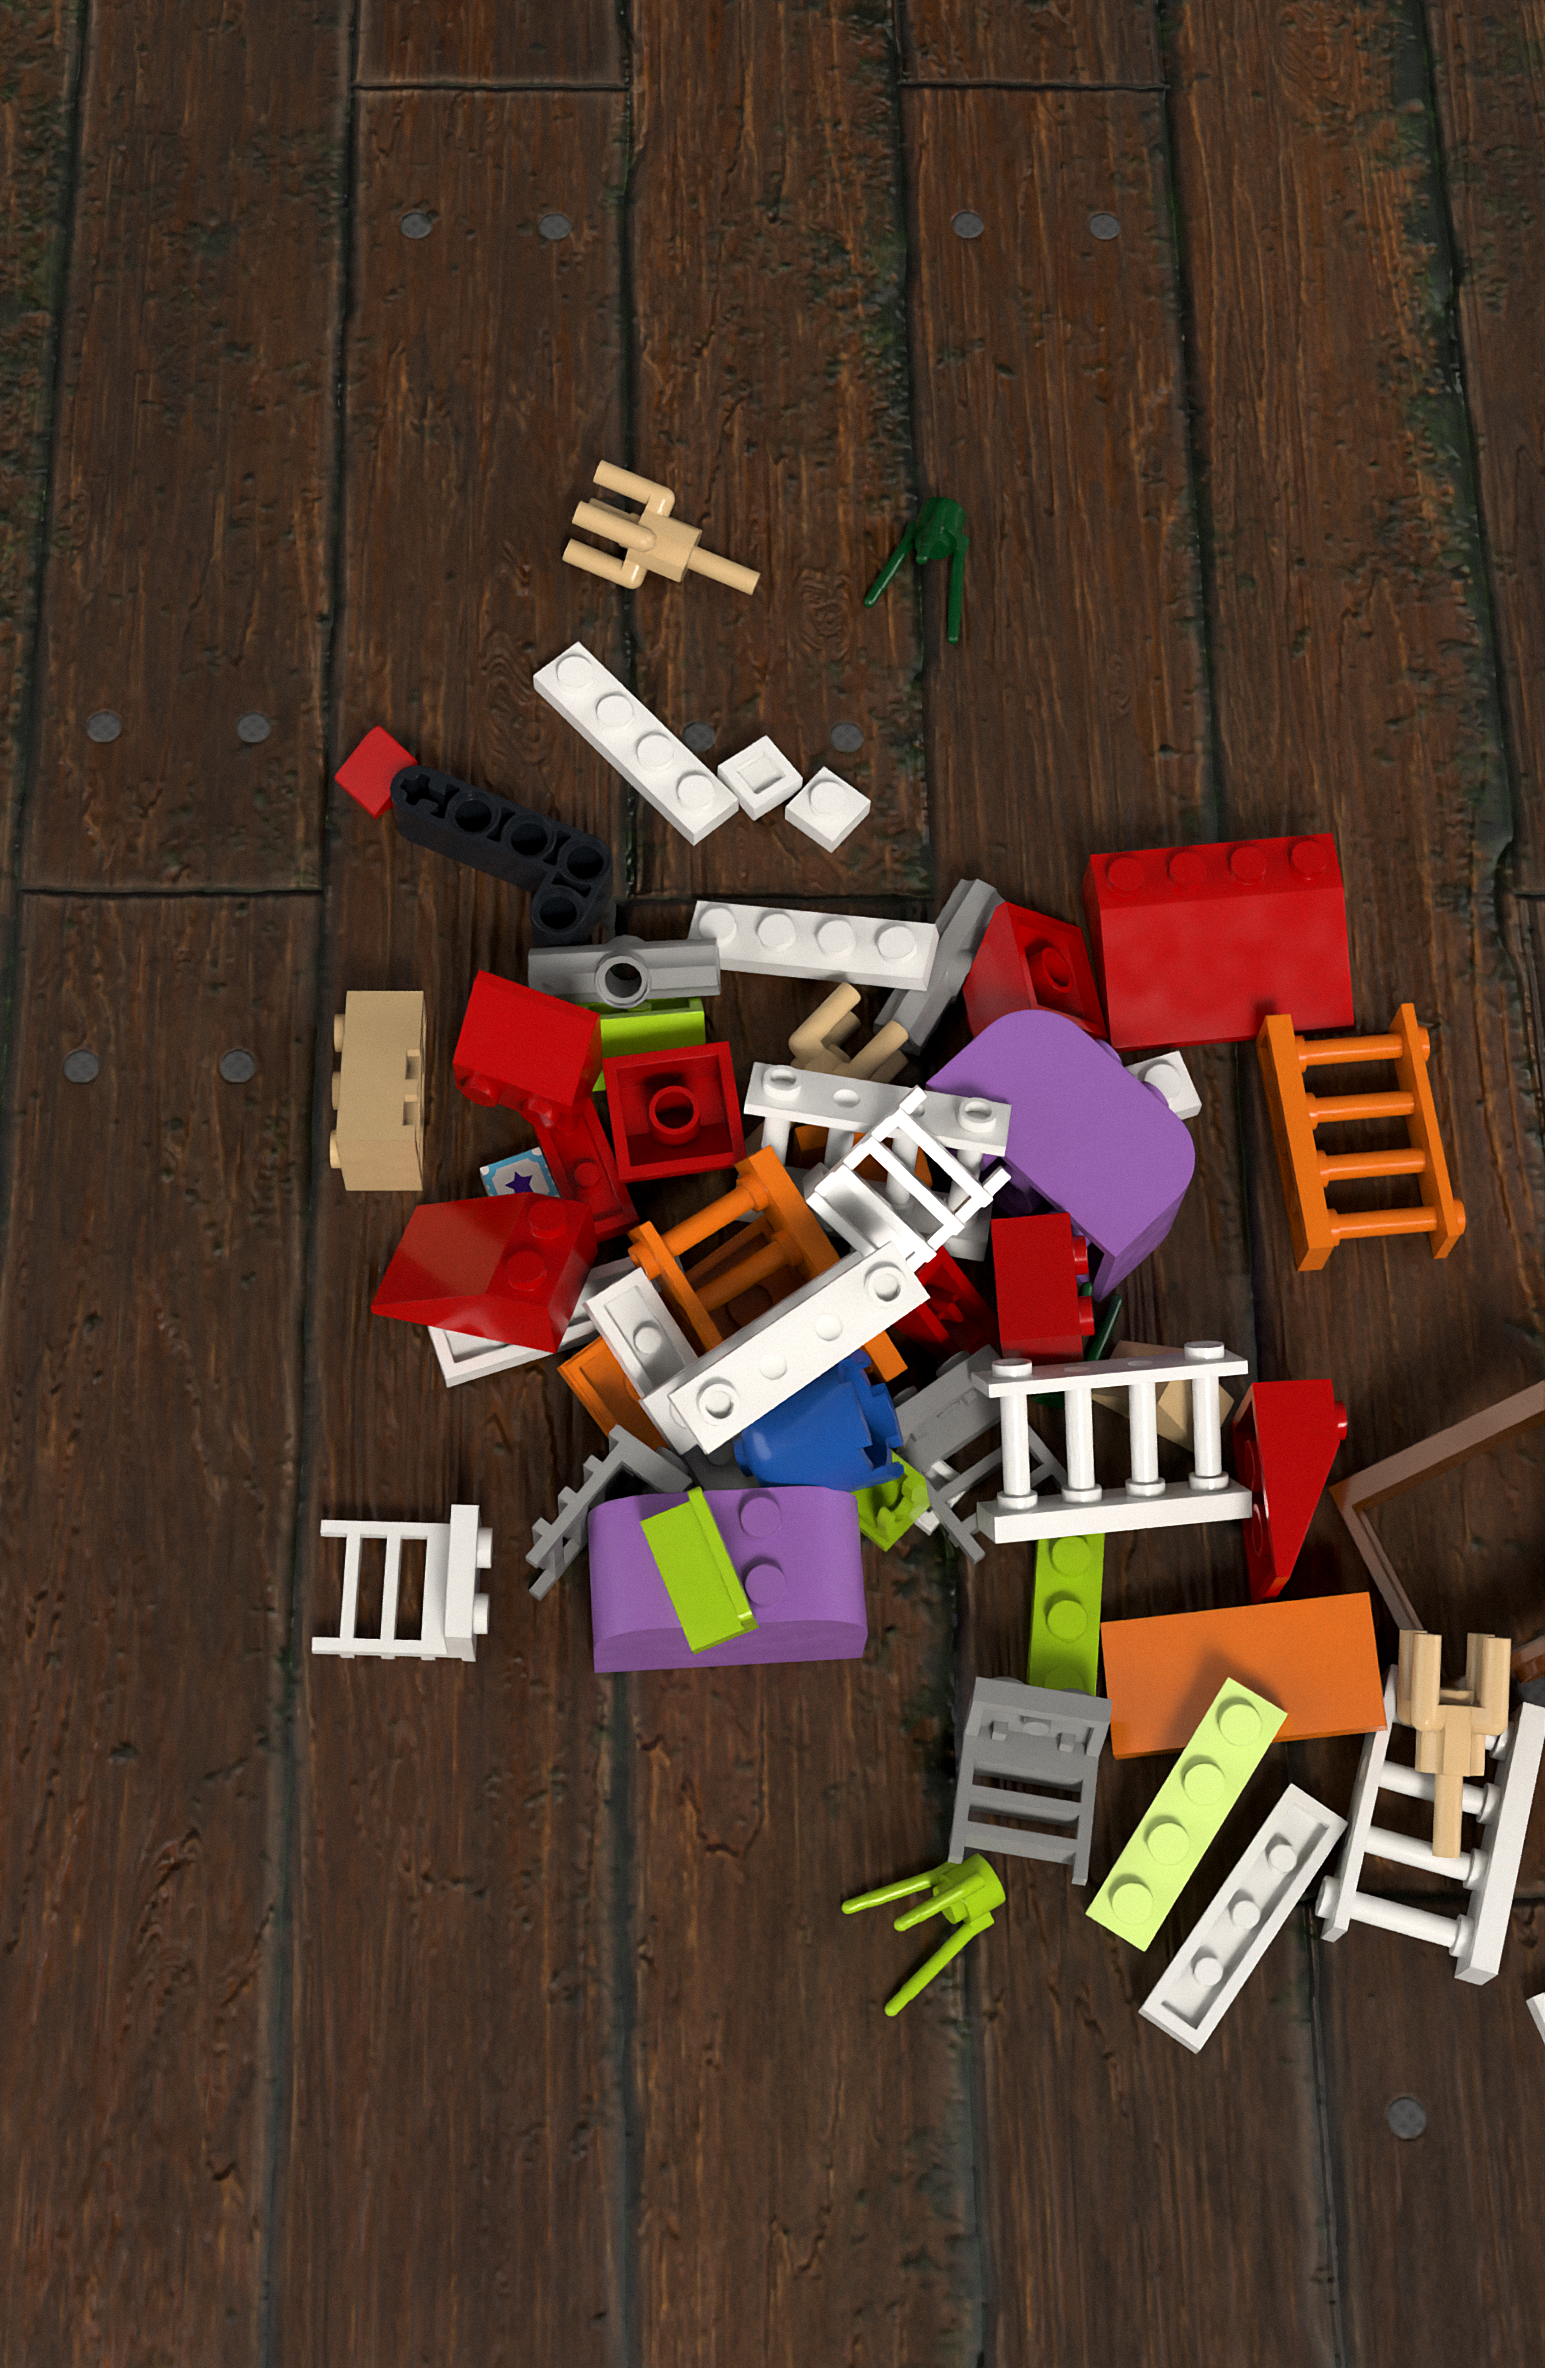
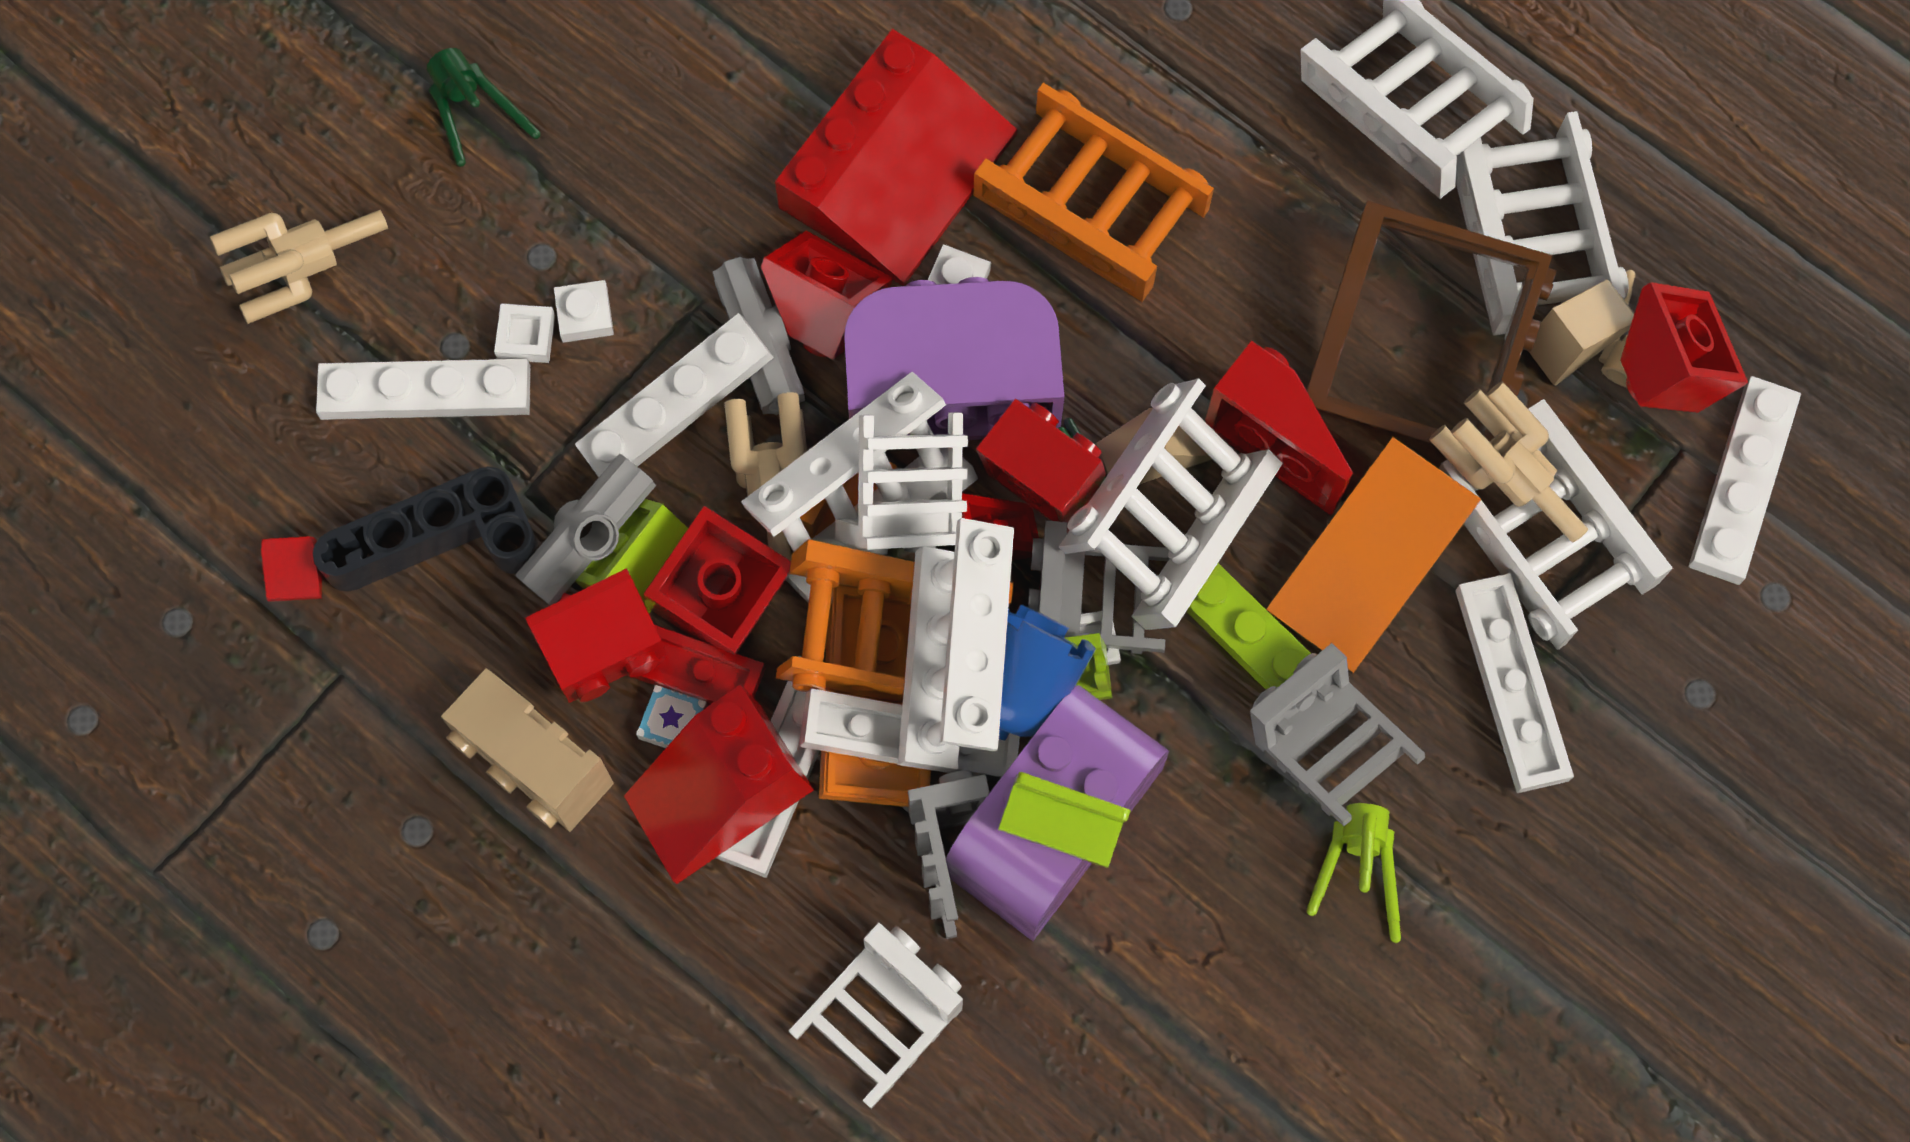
camera: 45 degrees left, 5 degrees up
(1186, 1814) = (1429, 661): yellowish green plate -> none

